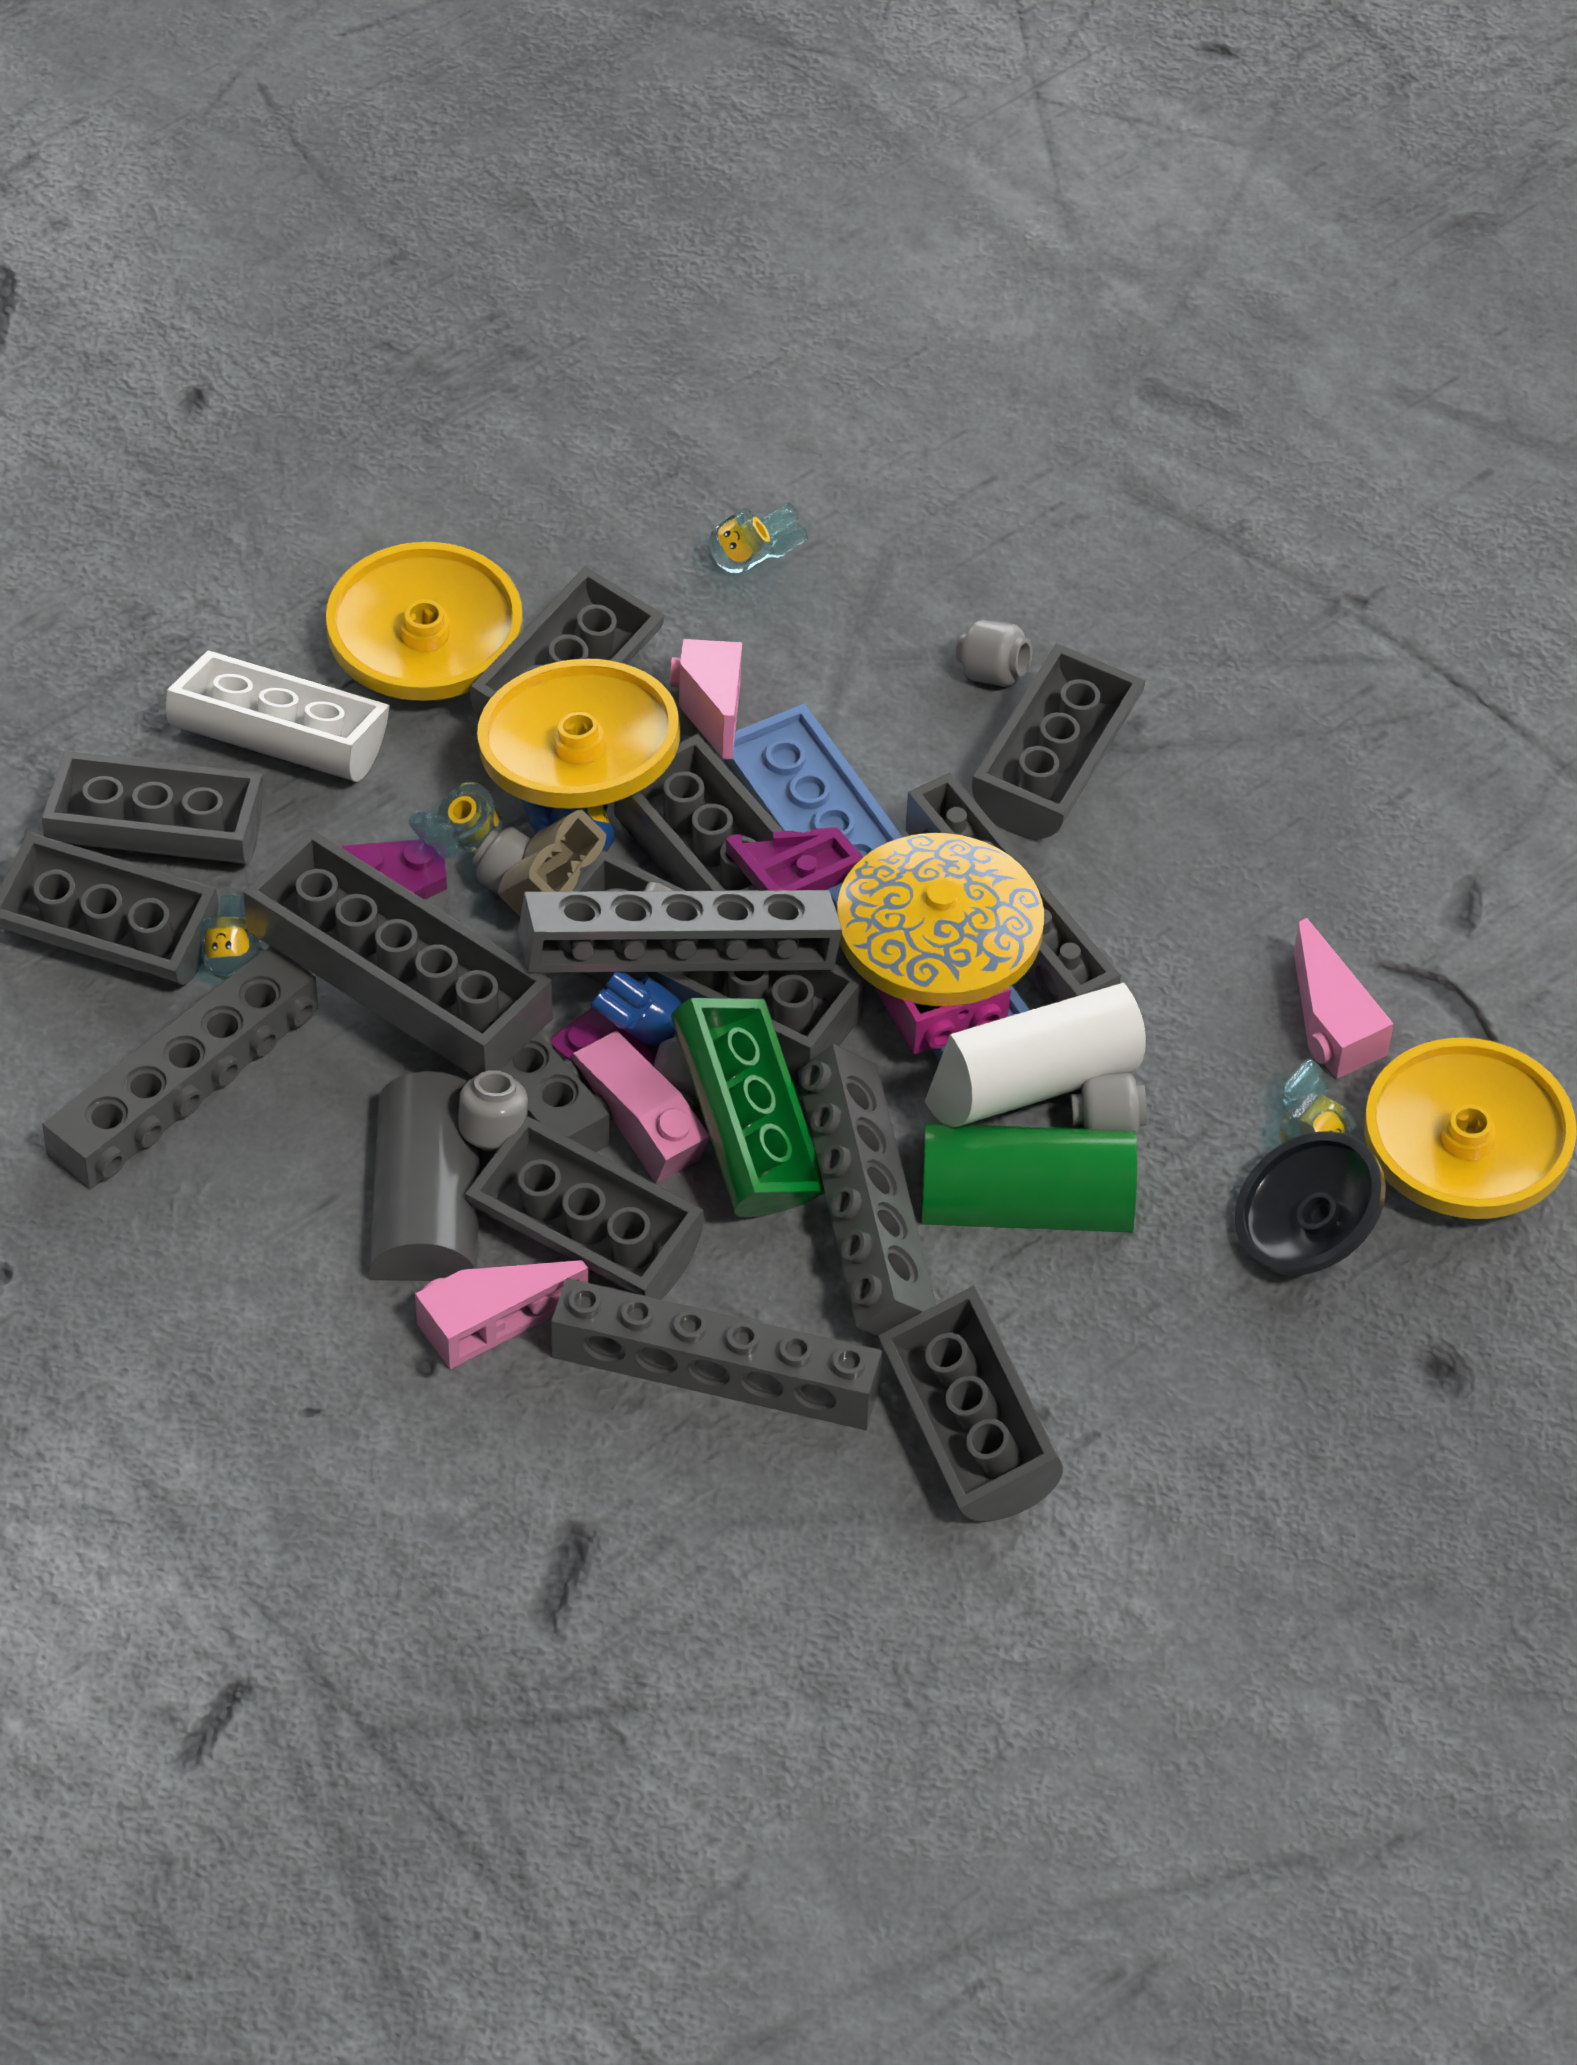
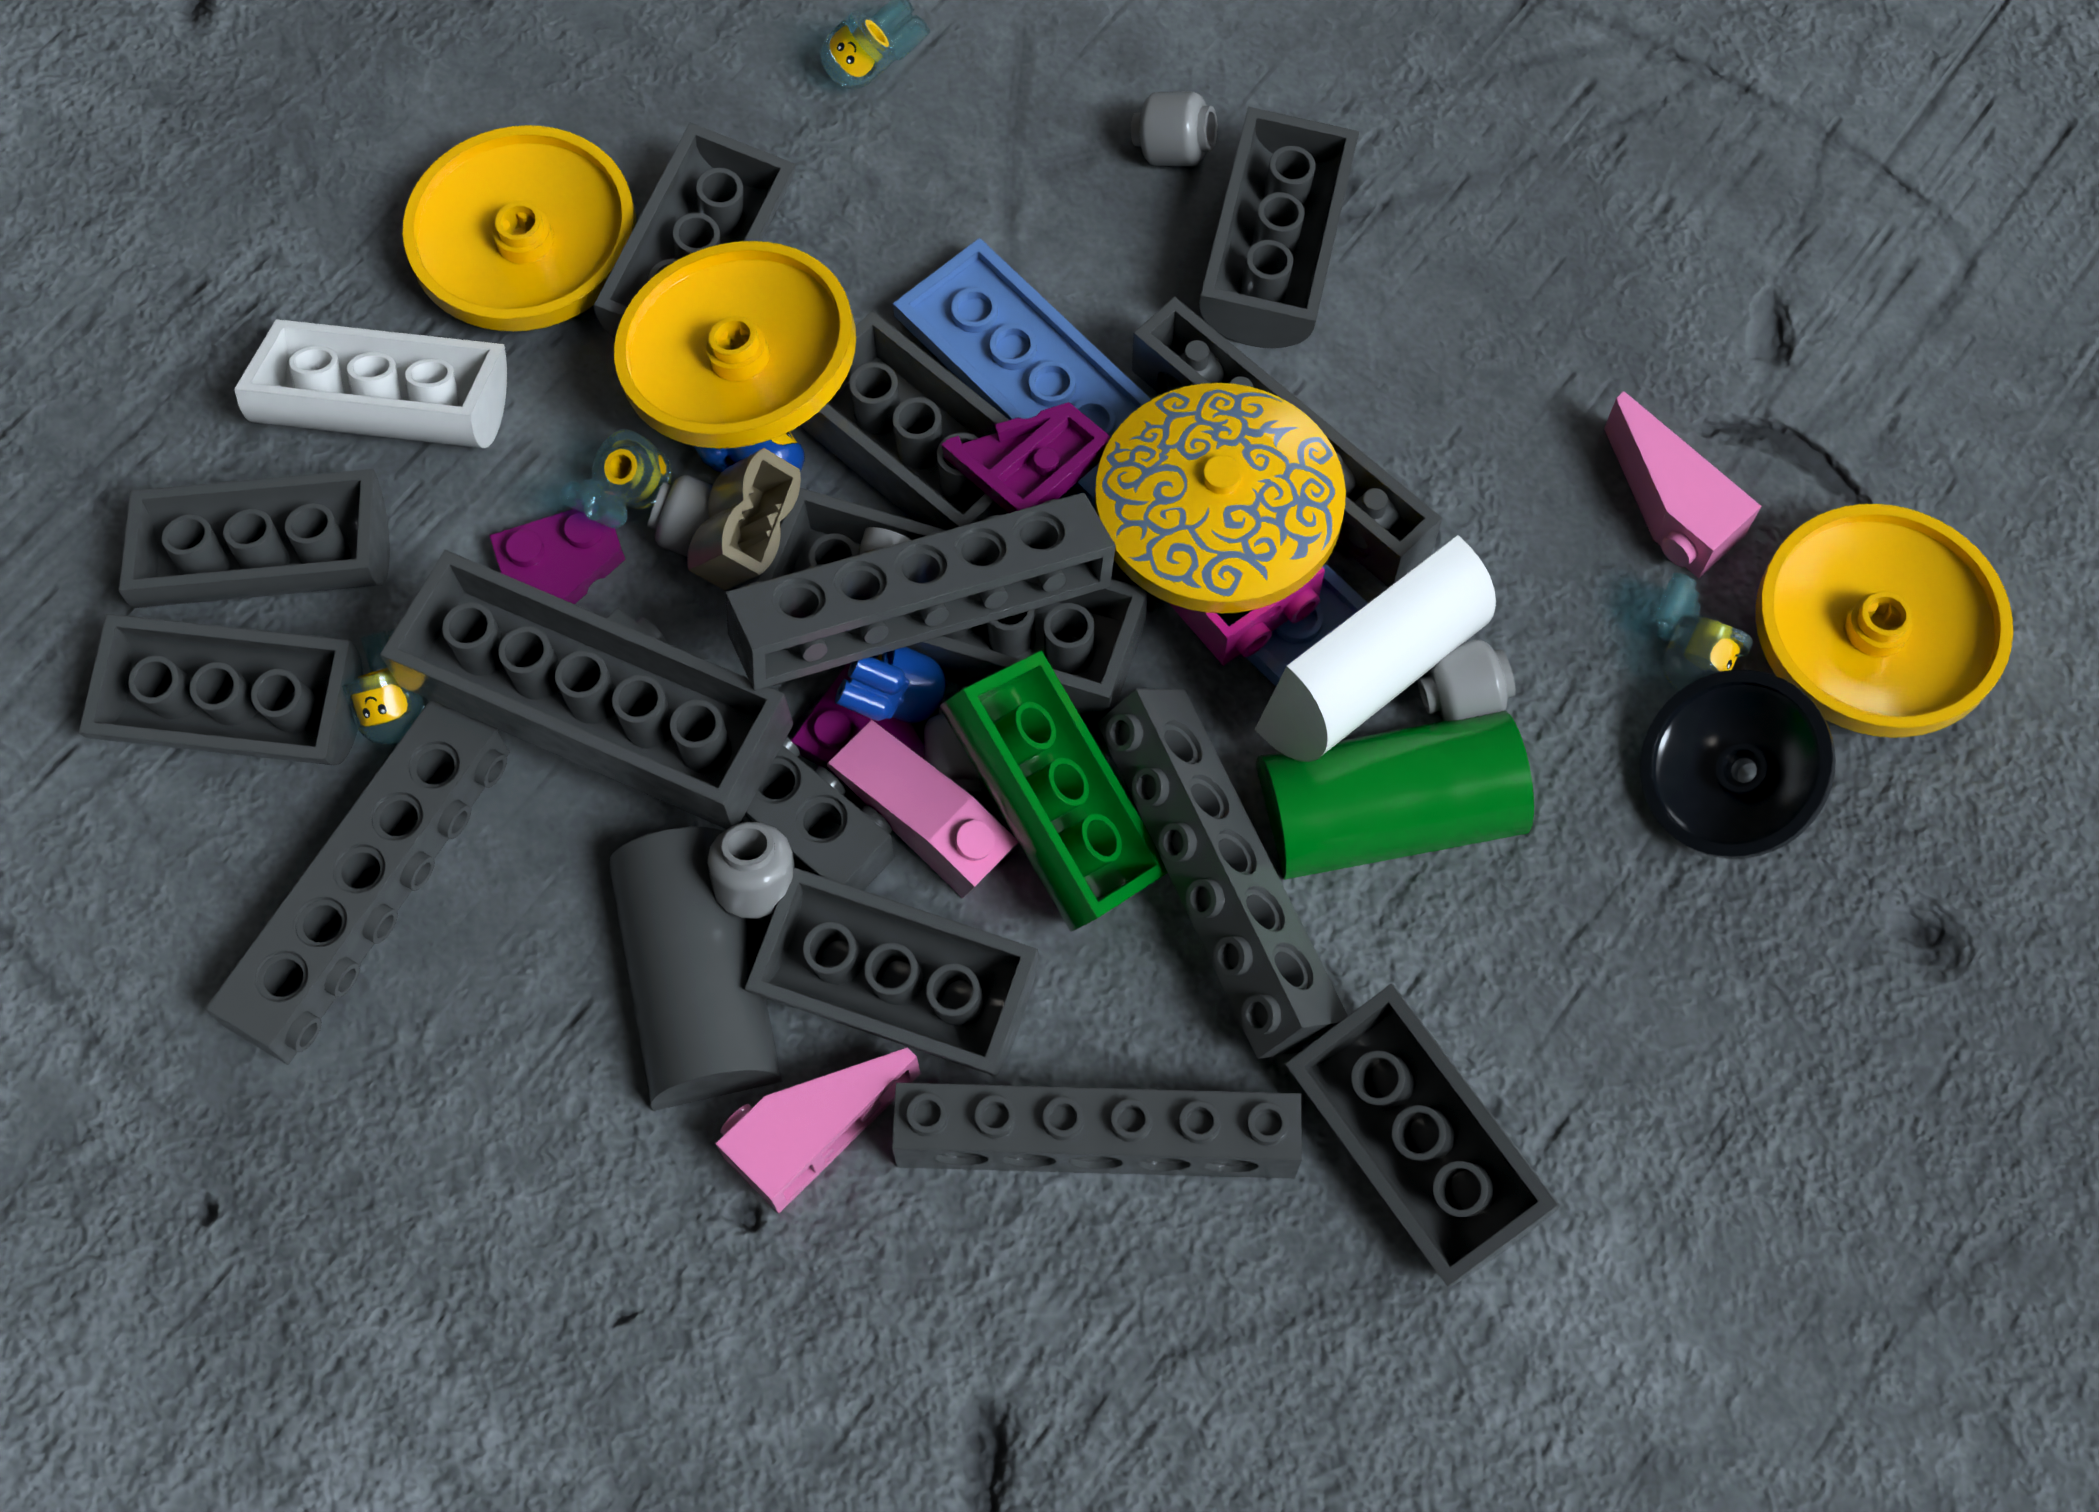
camera: 10 degrees left, 15 degrees up
(710, 689) = (870, 246): bright pink slope -> none

